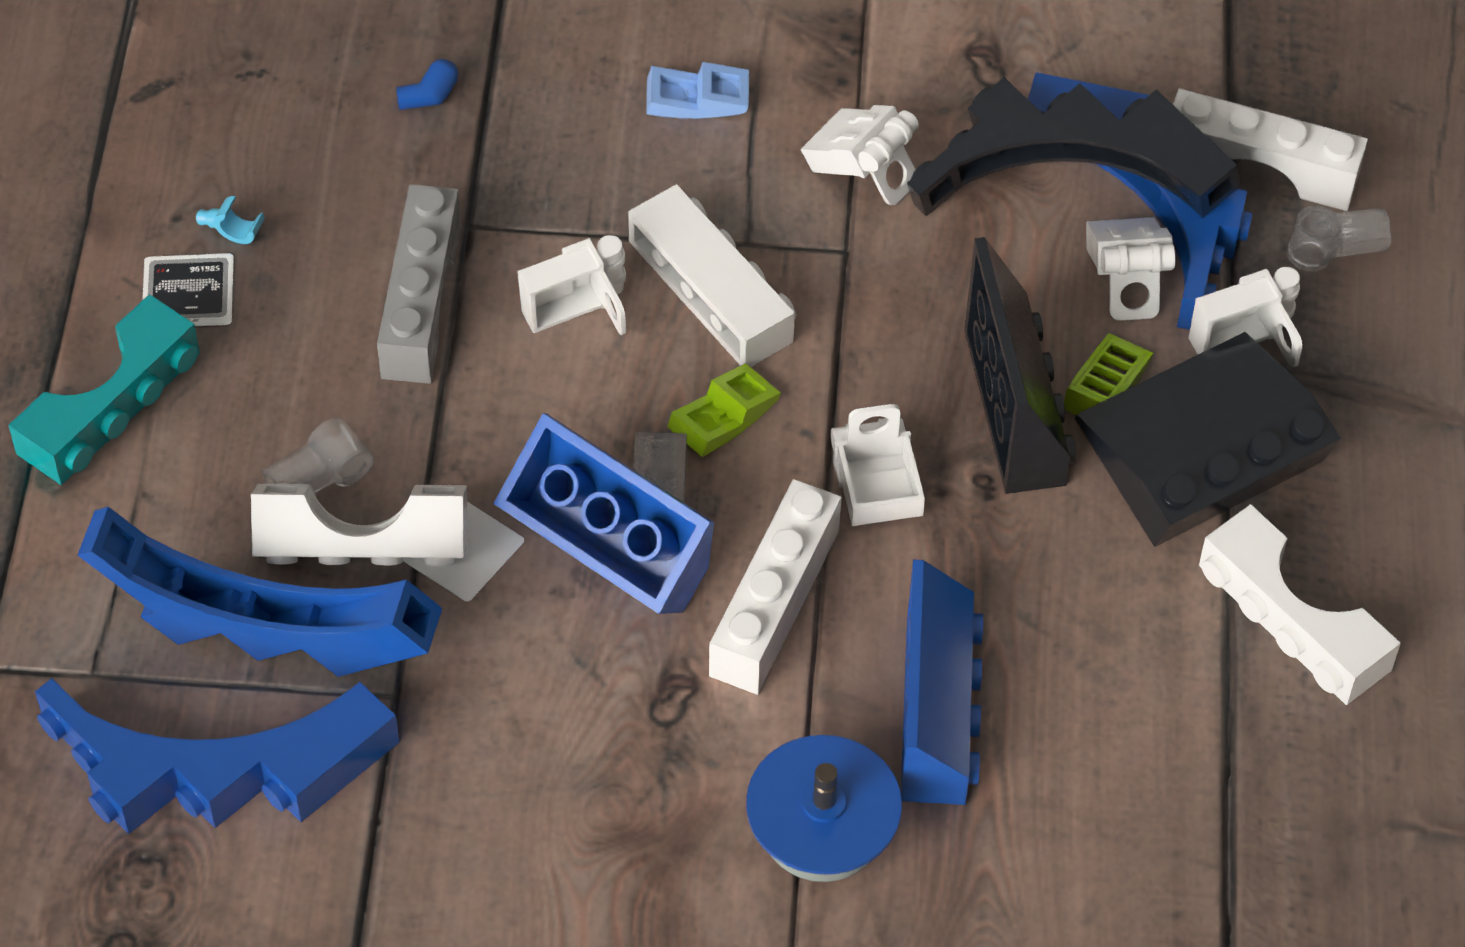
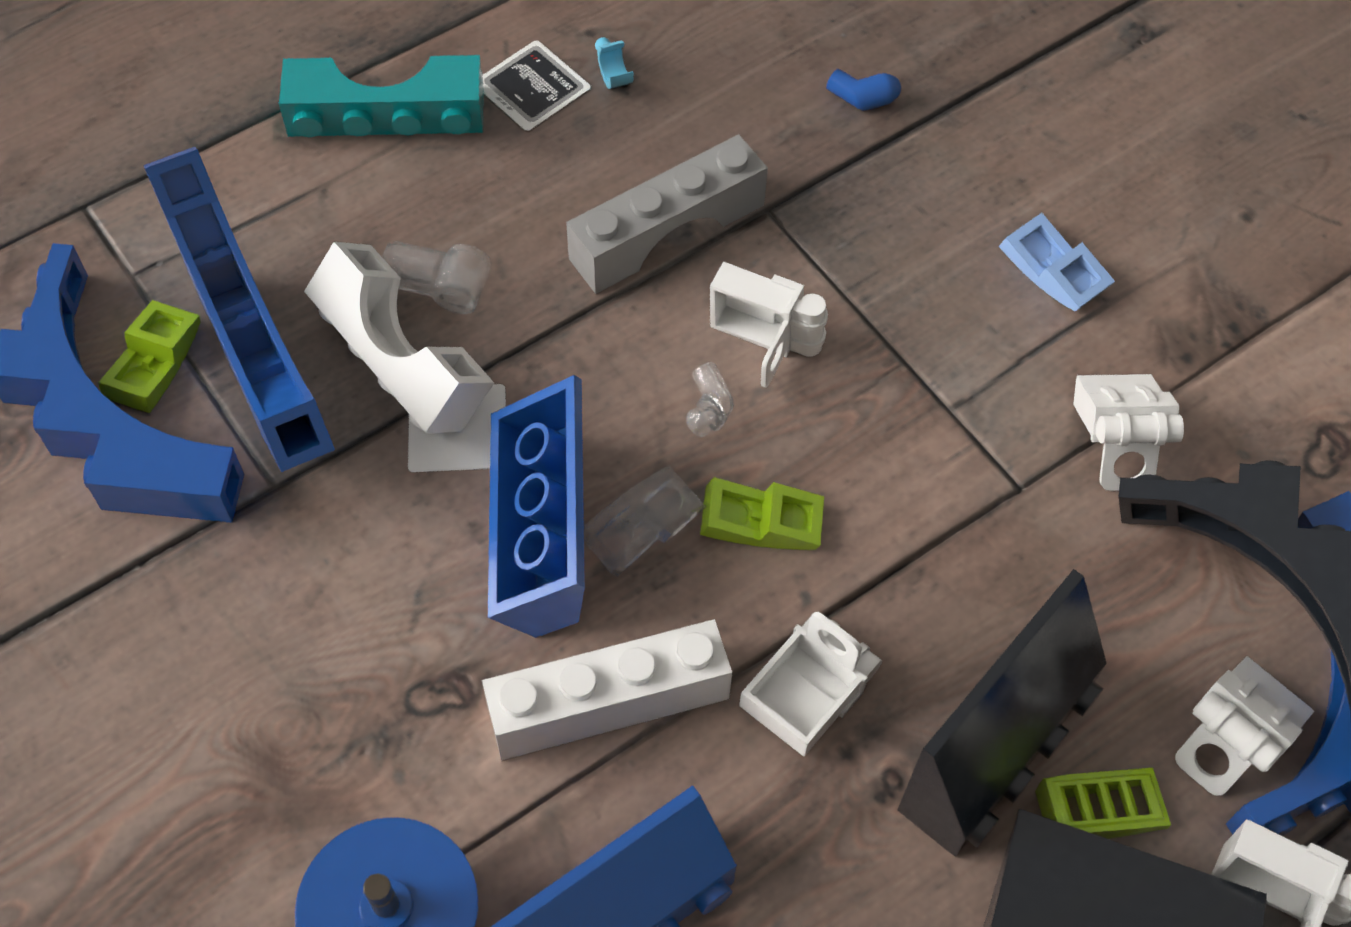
camera: 50 degrees right, 5 degrees up
(193, 697) = (153, 356): none -> lime slope
(603, 369) = (715, 403): none -> clear arm
(712, 276) = (880, 406): white brick -> none

